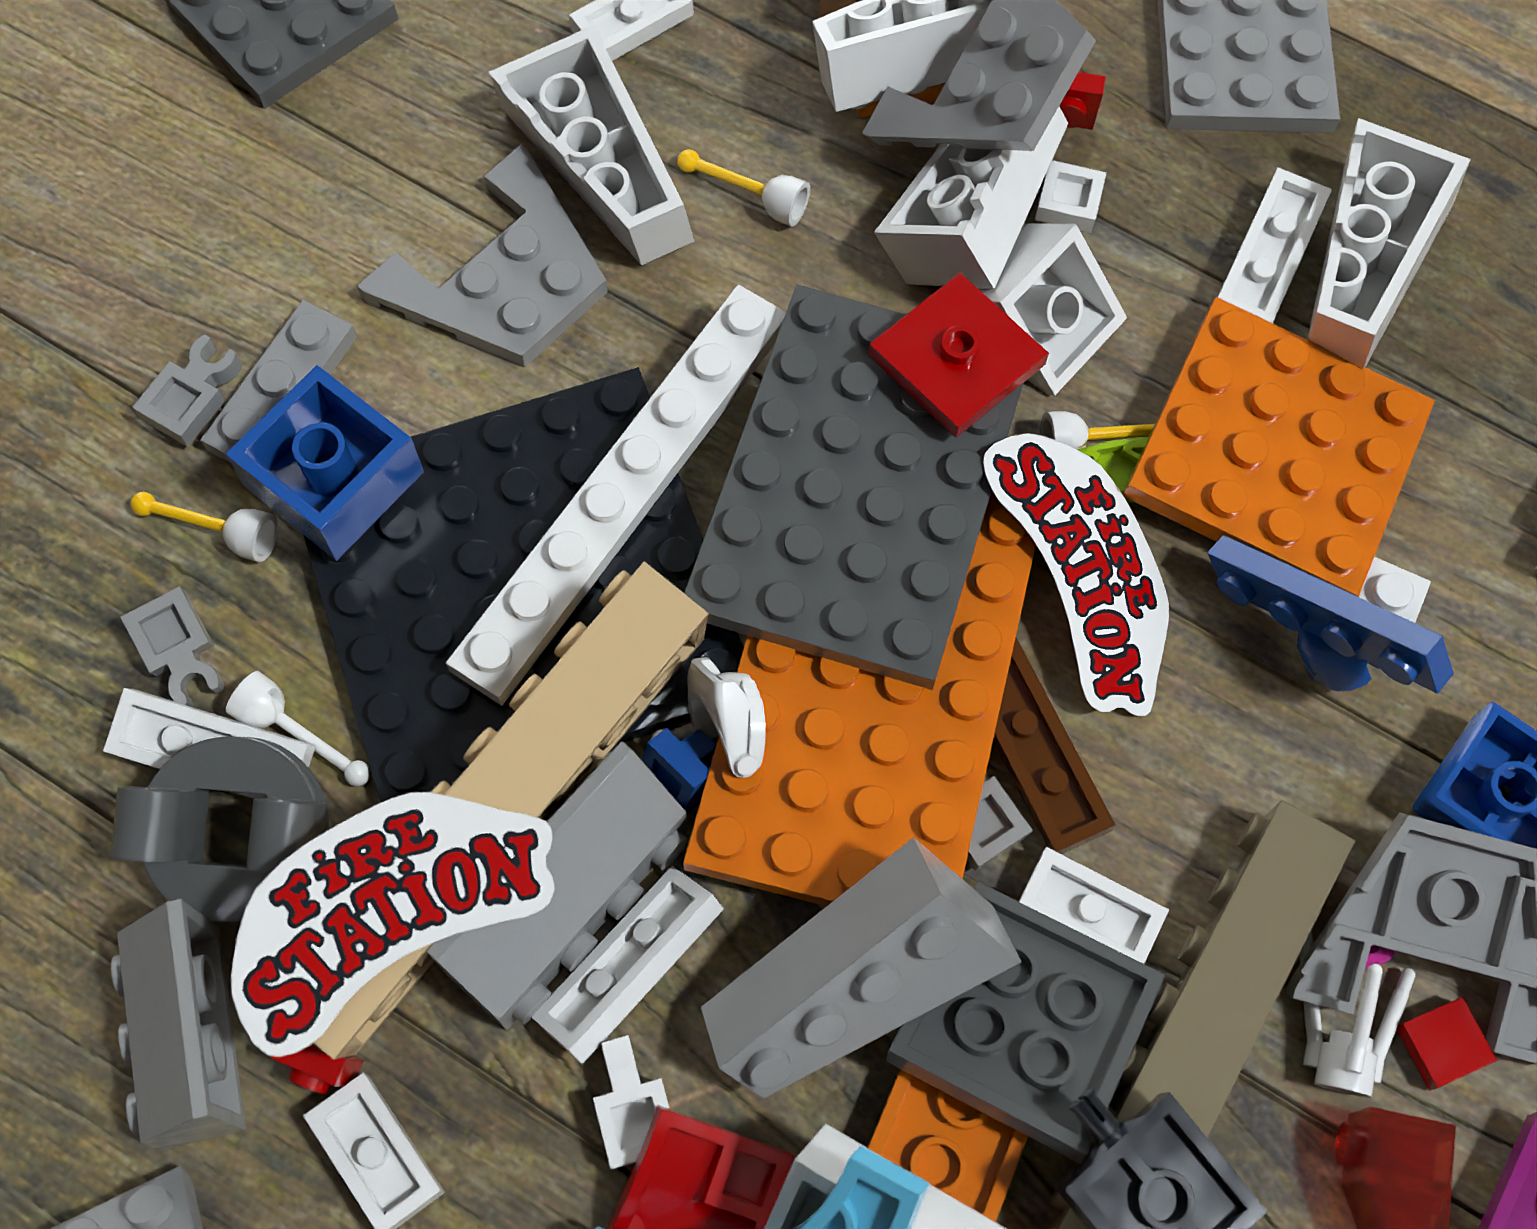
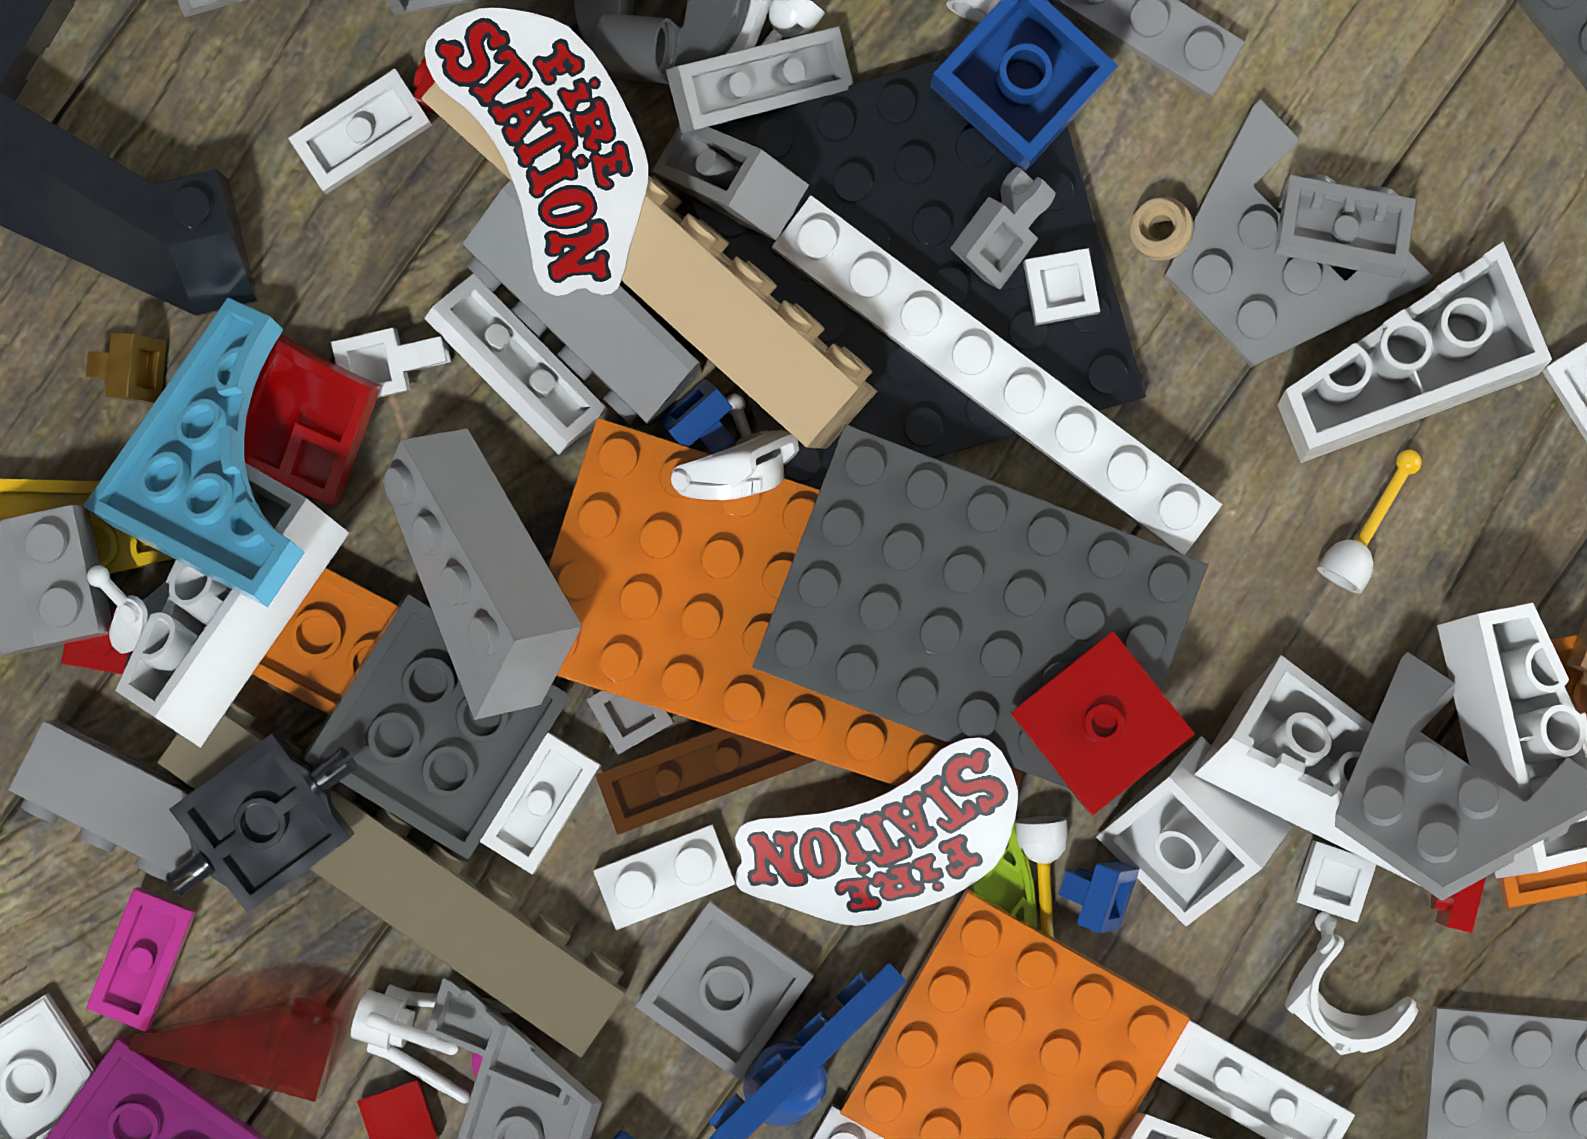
camera: 90 degrees right, 20 degrees up
(325, 722) = (759, 79): none -> light grey plate
(426, 731) = (732, 179): none -> light grey slope
(466, 350) = (1149, 216): none -> tan plate
(474, 202) = (1345, 225): none -> light grey bracket
(483, 483) = (999, 231): none -> light grey plate
(535, 428) = (1061, 286): none -> white plate
(1109, 379) = (1101, 893): none -> blue tile
(1148, 784) = (664, 876): none -> white plate
(1174, 207) = (1343, 1030): none -> white helmet
(1255, 715) = (724, 990): none -> light grey plate

